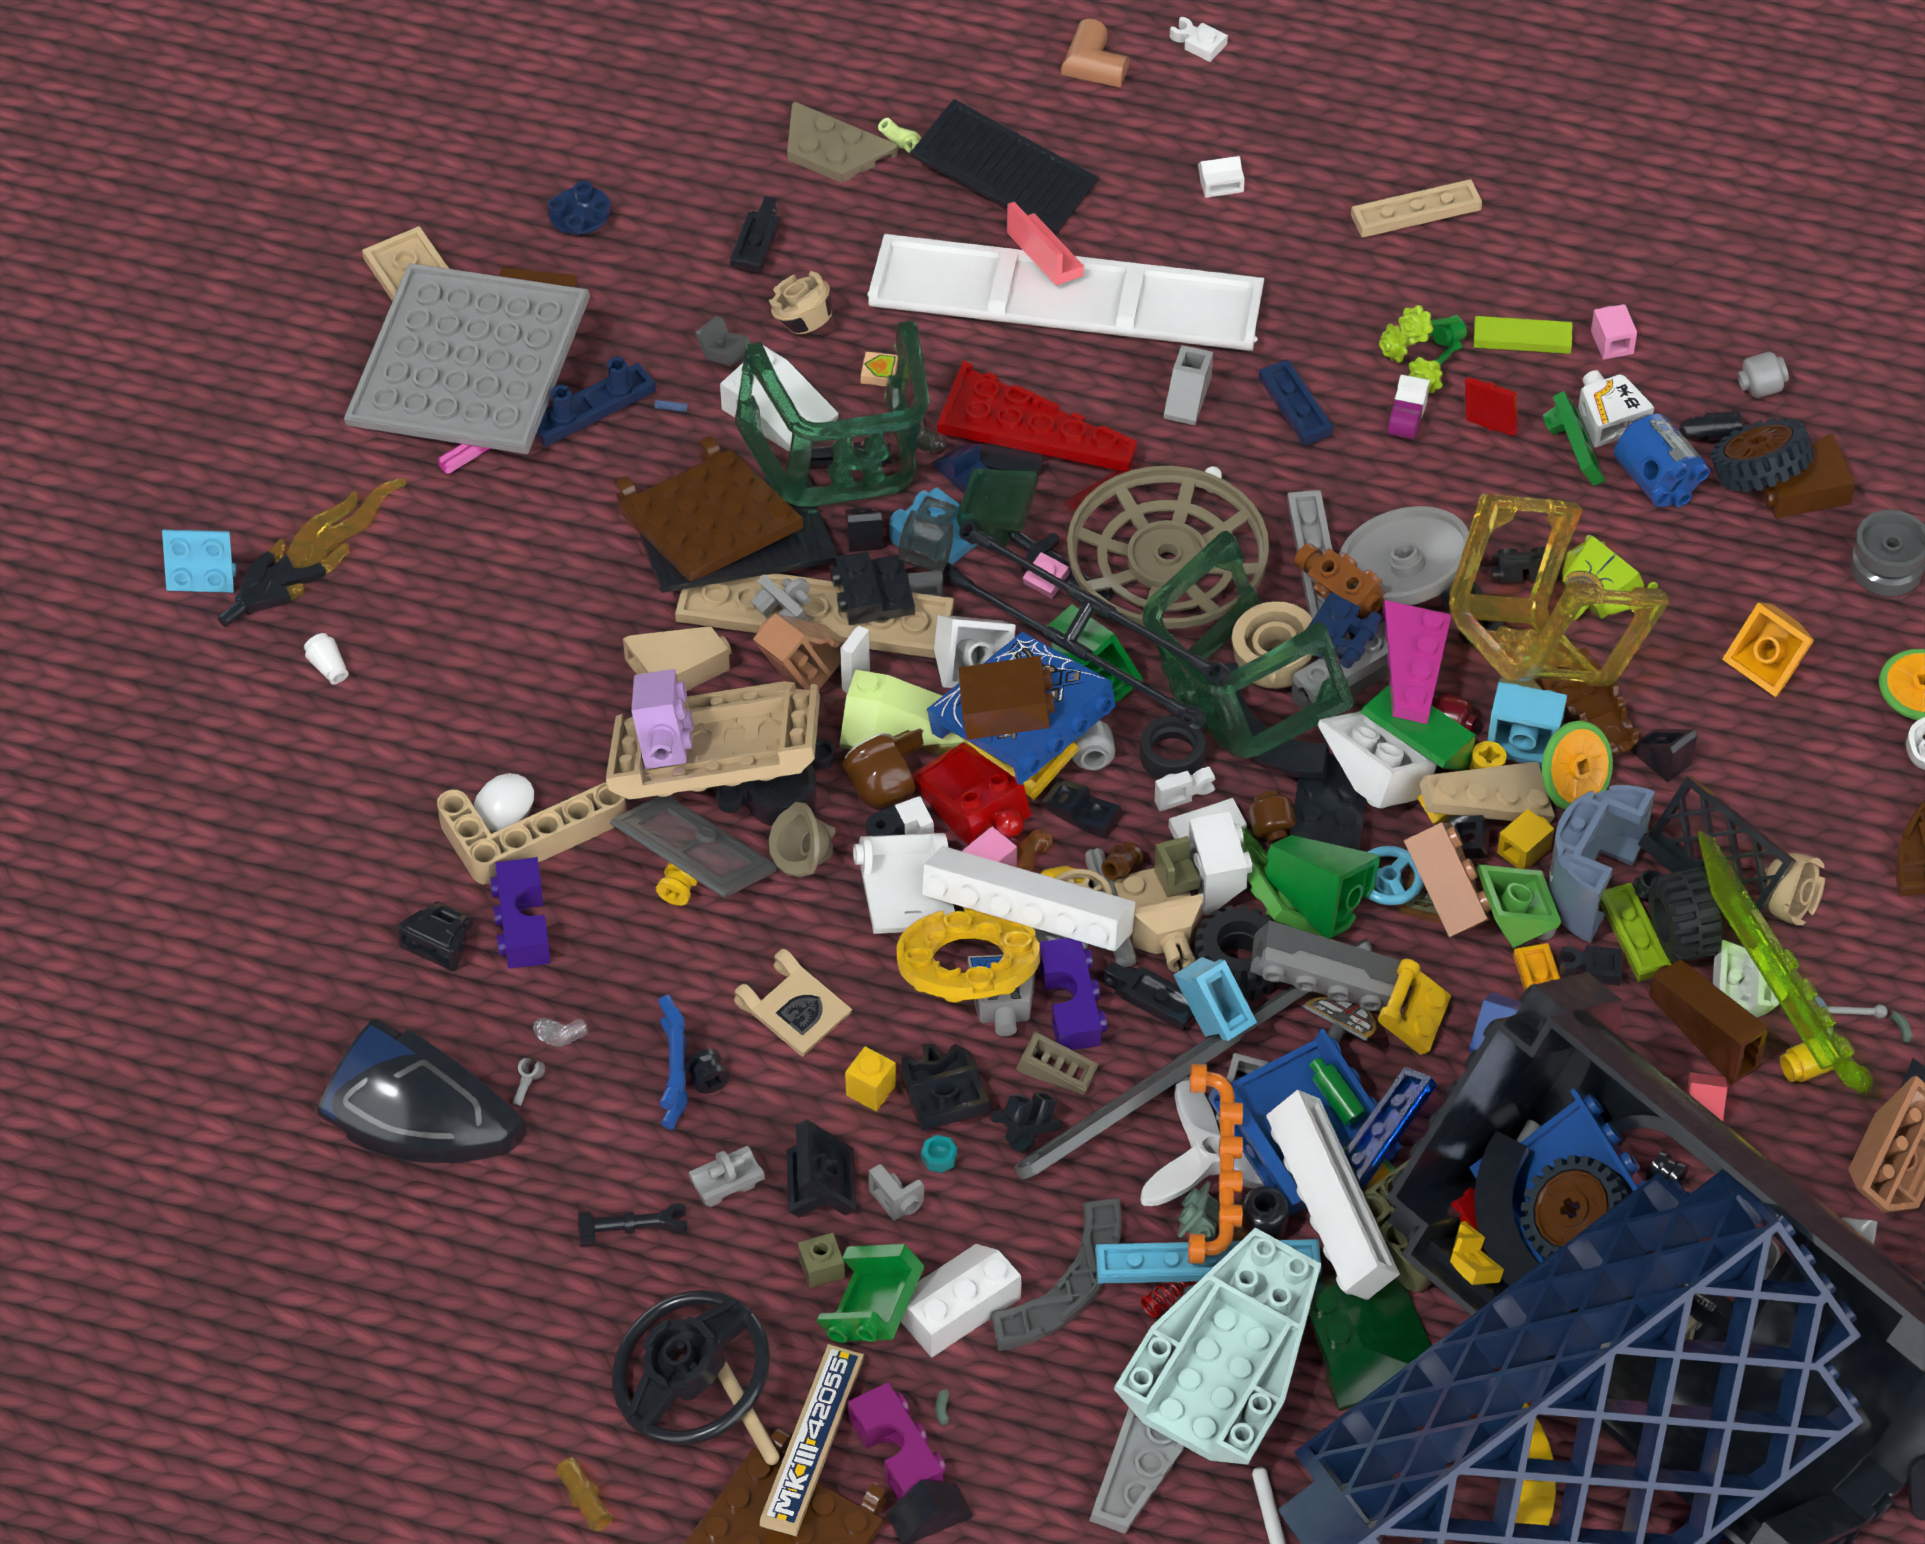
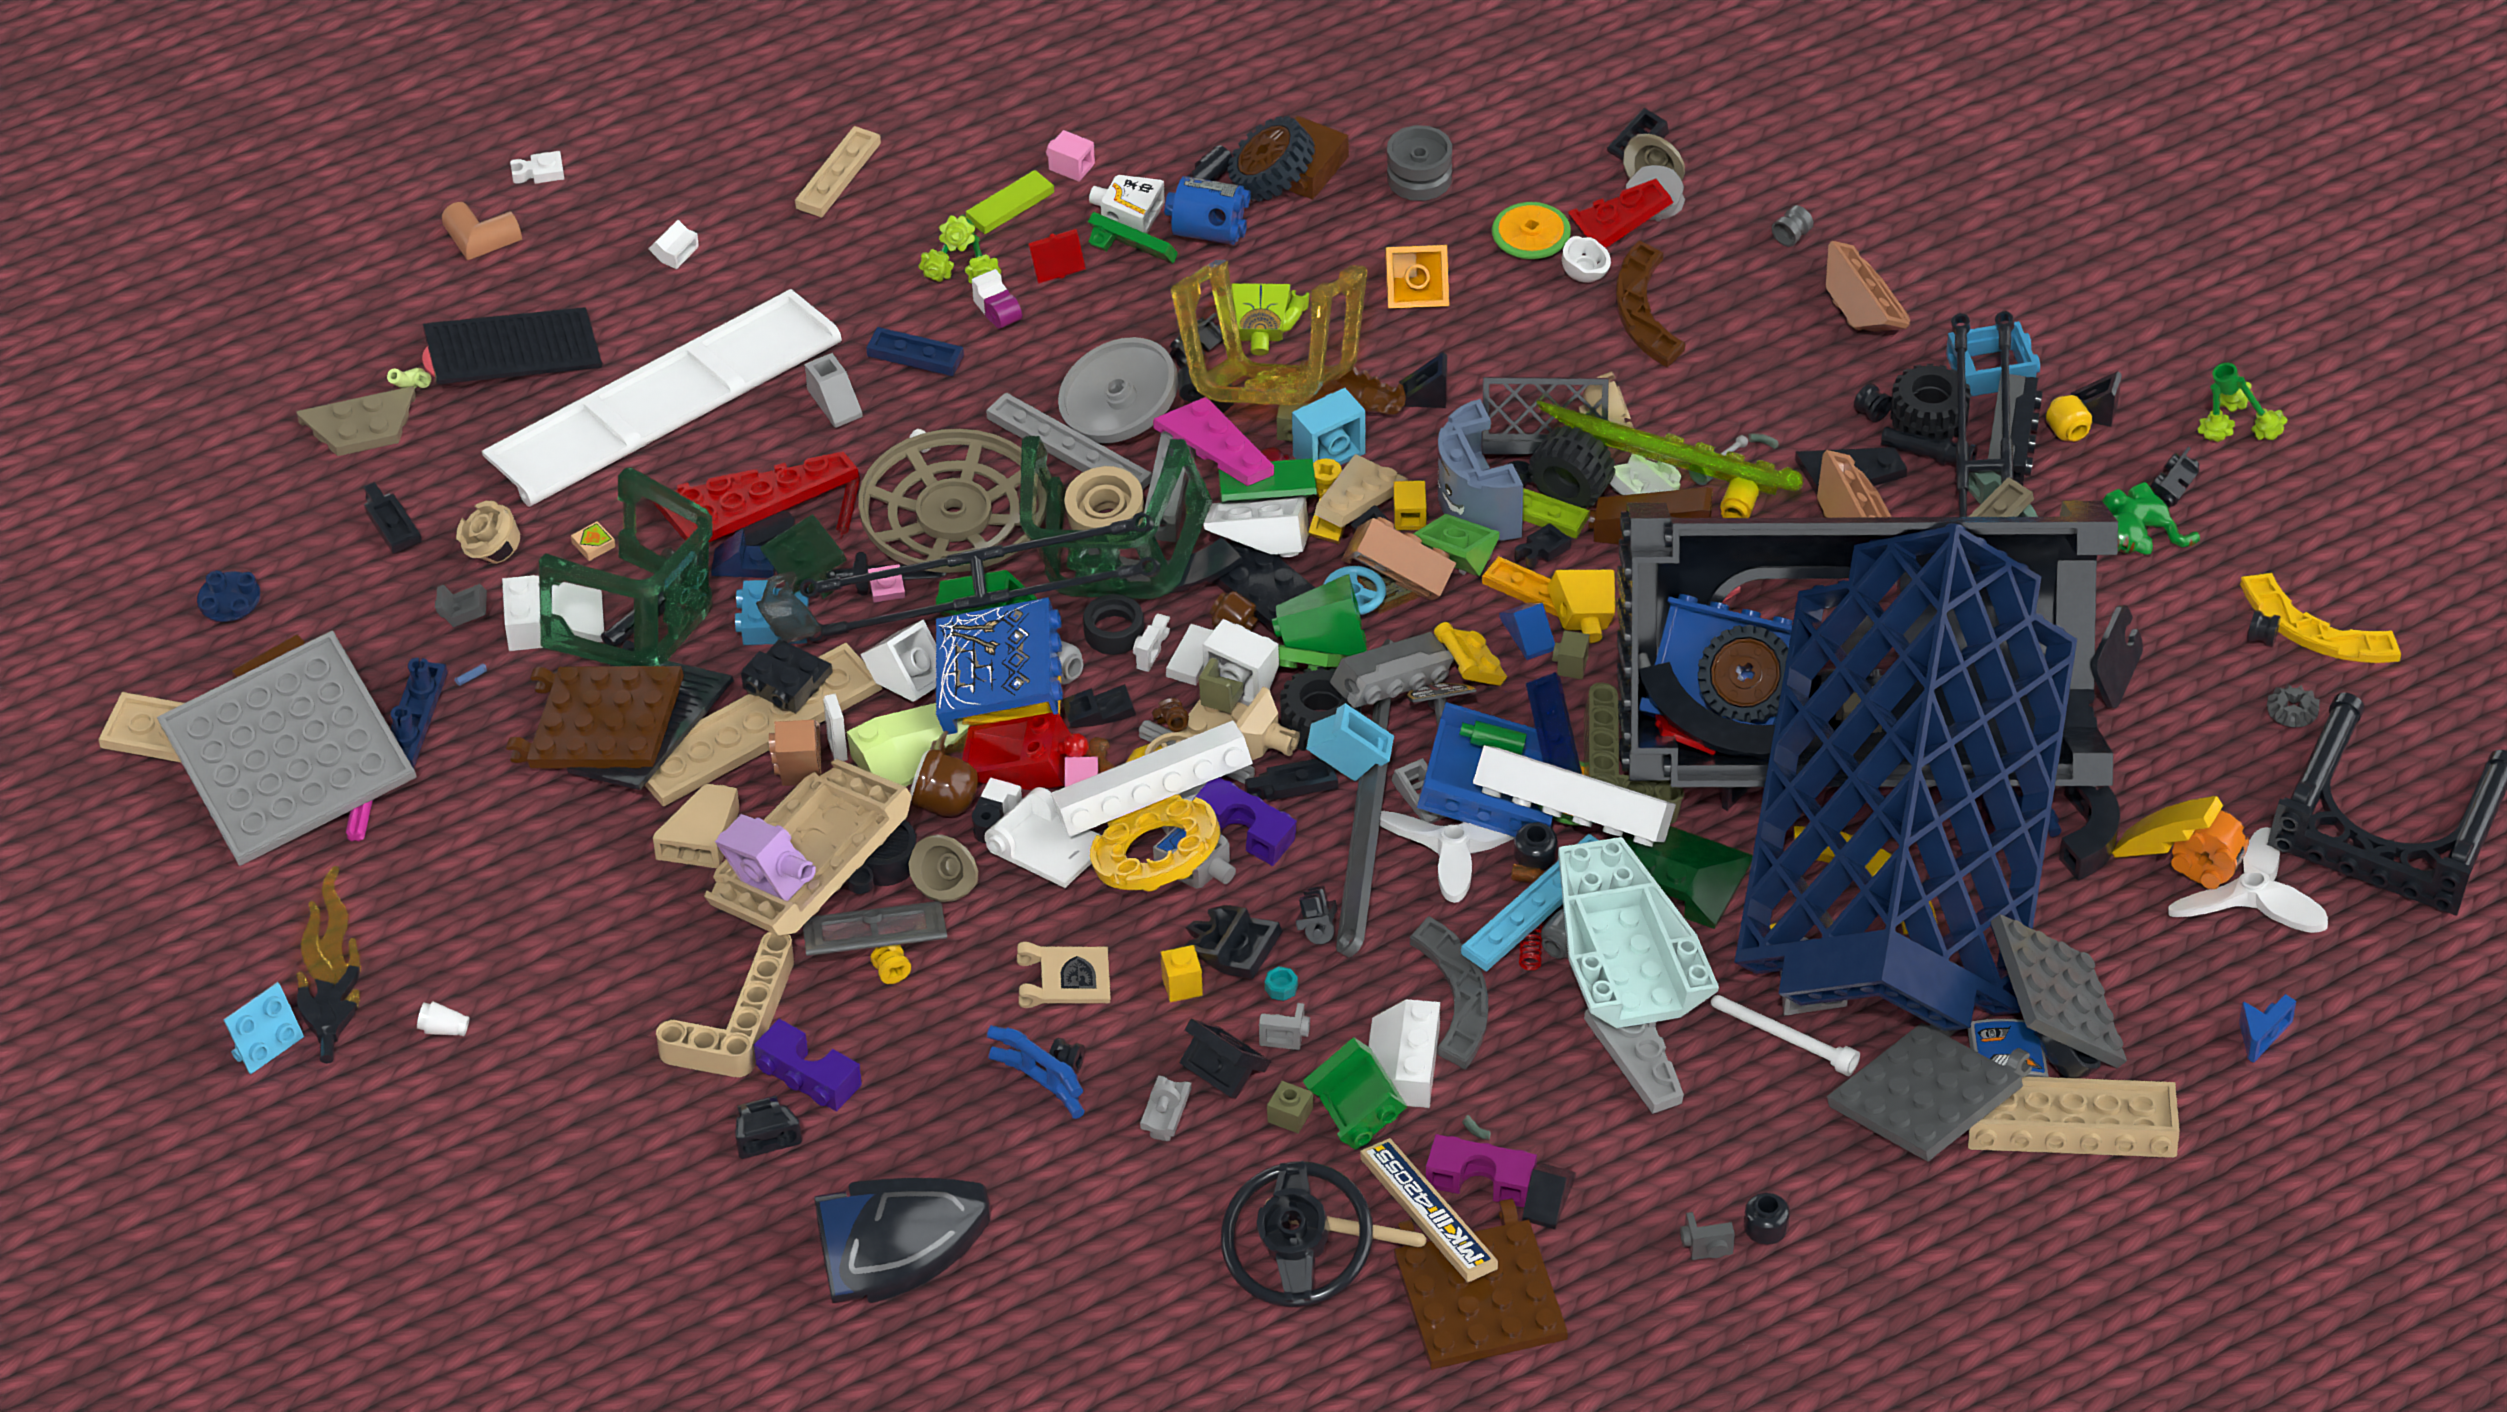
camera: 45 degrees left, 5 degrees down
(504, 801) = (698, 1004): white hat -> none
(526, 1078) = (946, 1163): light grey hand -> none
(558, 1034) = (929, 1120): clear arm -> none
(583, 1494) = (1321, 1369): clear yellow pin -> none
(629, 1222) = (1112, 1214): black piece -> none
(771, 596) = (739, 724): light grey hips -> none
(864, 529) = (720, 645): black slope -> none
(926, 583) = (818, 643): dark grey tile -> none
(1005, 697) = (993, 659): reddish brown brick -> none
(1042, 246) = (612, 375): coral panel -> none
(1042, 1071) = (1265, 880): dark tan slope -> none
(1199, 1213) = (1496, 879): sand green hinge -> none
(1229, 1179) = (1503, 838): orange bar -> none
(1337, 575) = (1104, 436): dark orange brick -> none
(1341, 617) = (1138, 460): dark blue plate -> none
(1470, 1260) = (1721, 757): yellow slope -> none
(1576, 762) = (1391, 433): light orange wheel -> none
(1763, 374) = (1202, 112): light grey head -> none

